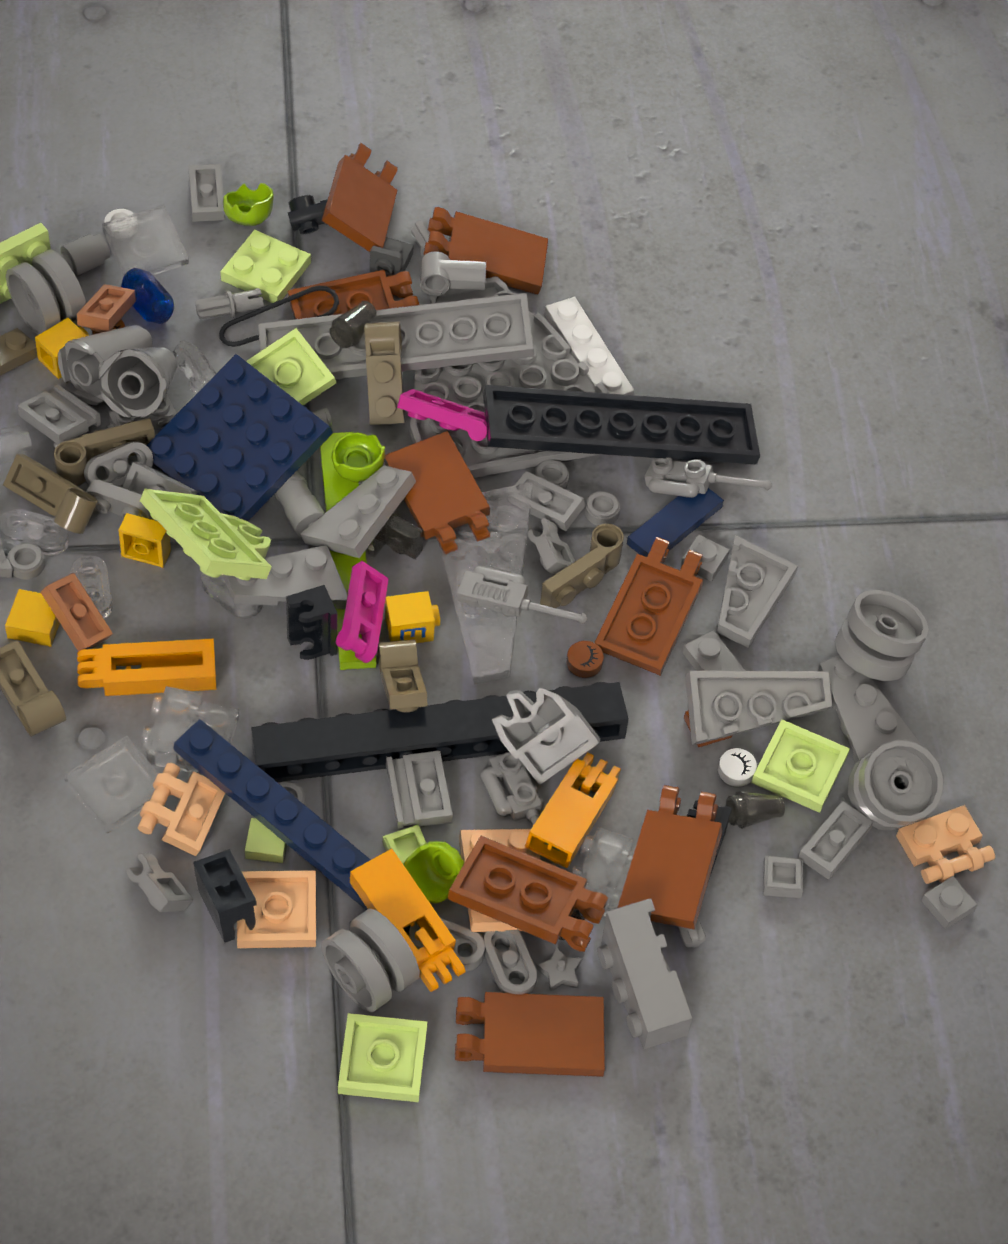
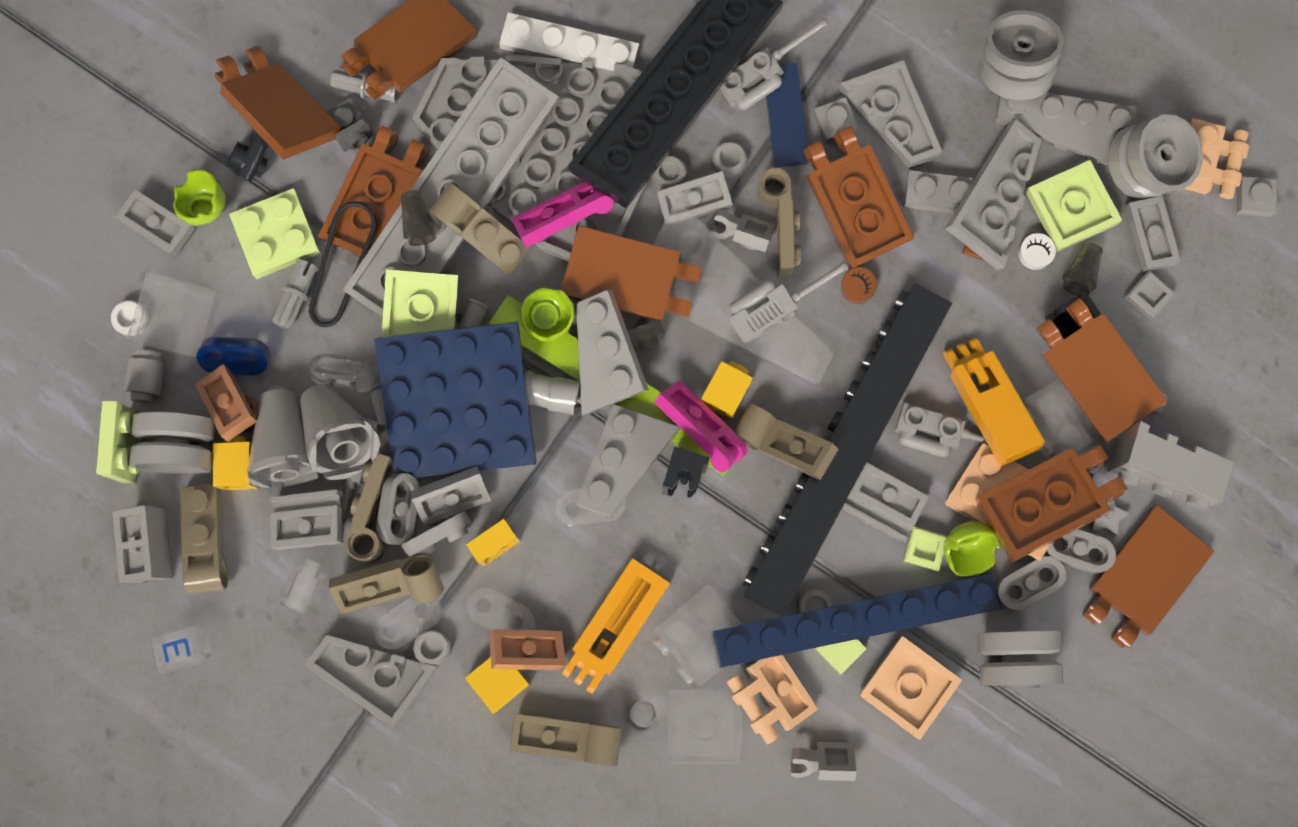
camera: 45 degrees left, 25 degrees up
(213, 539) = (546, 496): yellowish green plate -> none
(225, 892) = (879, 720): black hinge -> none
(382, 1057) = (1091, 702): yellowish green plate -> none
(392, 891) = (994, 603): light orange hinge -> none
(442, 274) = (413, 102): light grey piece -> none
(544, 733) = (926, 378): light grey plate -> none

